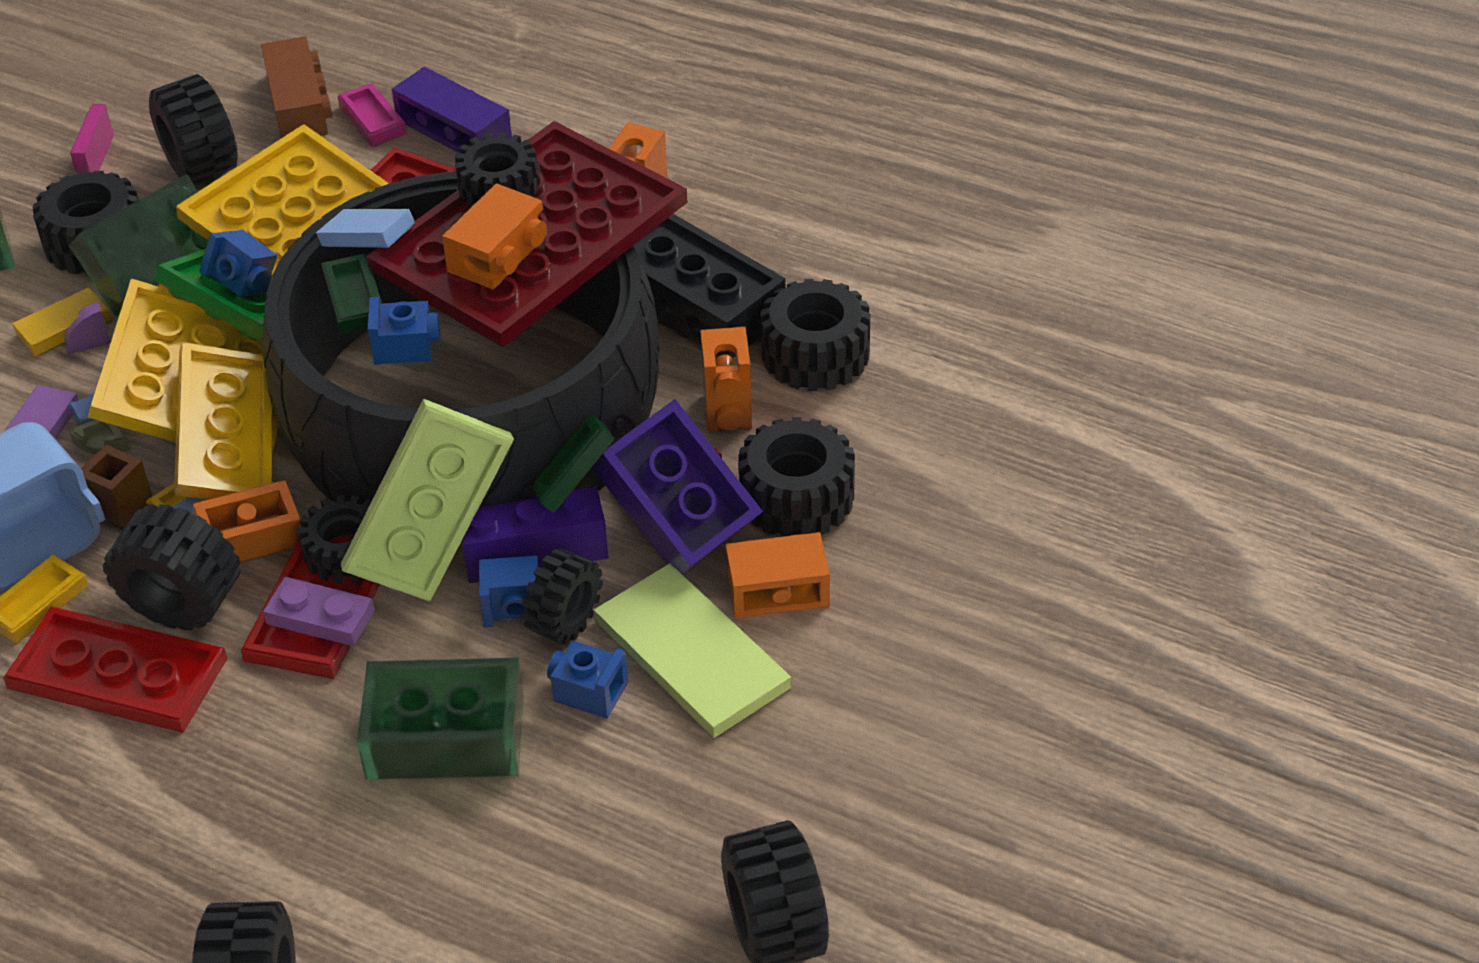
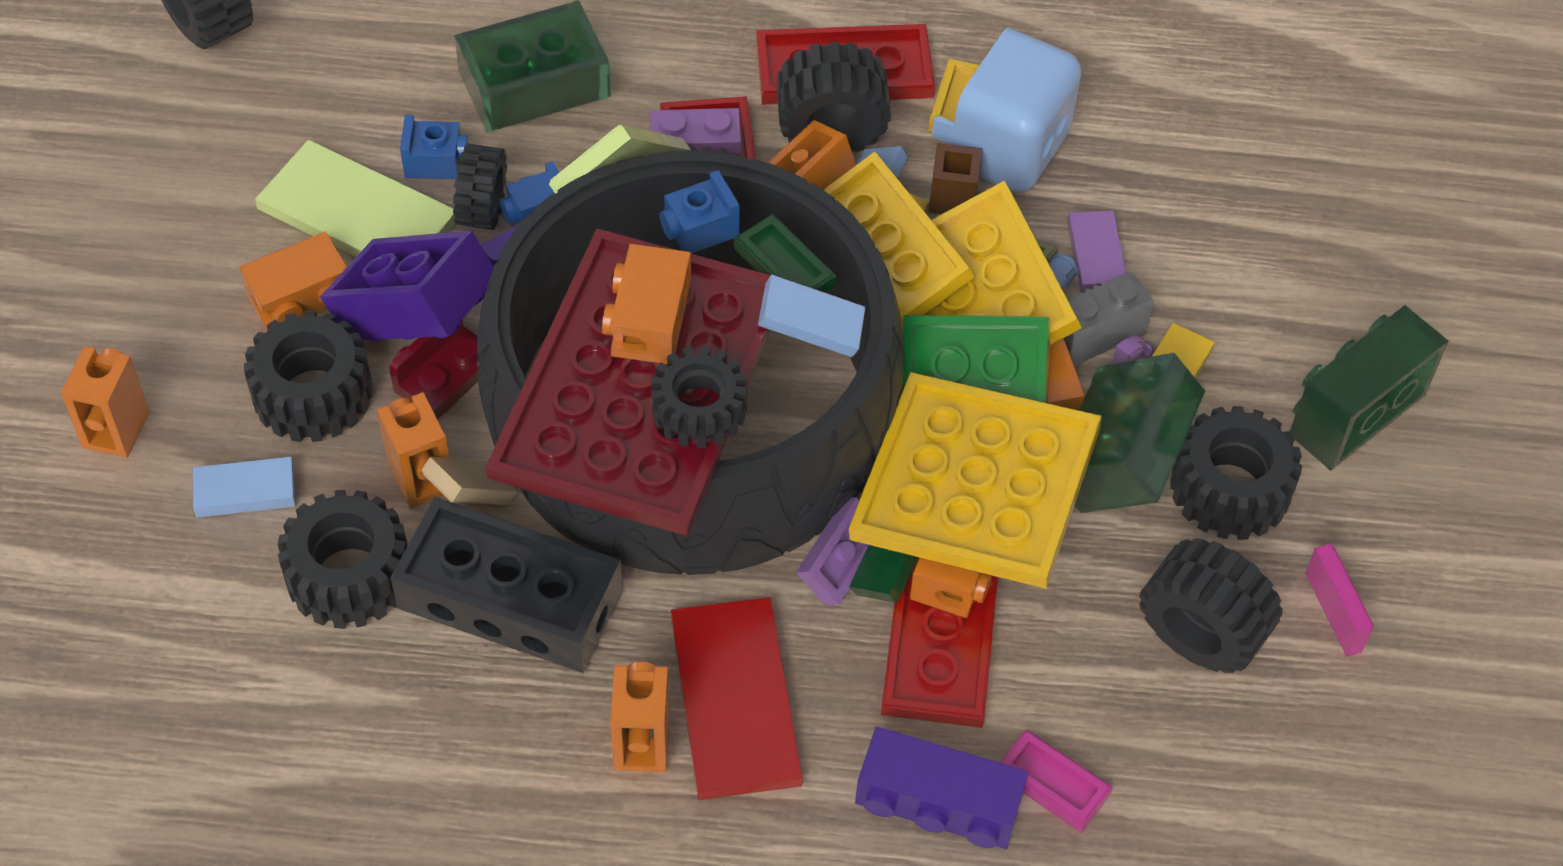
camera: 155 degrees right, 10 degrees up
(76, 351) = (1108, 316): none -> flat silver brick
(239, 262) = (975, 361): blue brick -> none
(296, 85) = (1169, 771): dark orange brick -> none
(572, 463) = (491, 231): dark green tile -> none
(683, 360) = (466, 481): none -> tan tile
(884, 430) = (243, 487): none -> light blue tile
(986, 496) = (105, 401): none -> orange brick

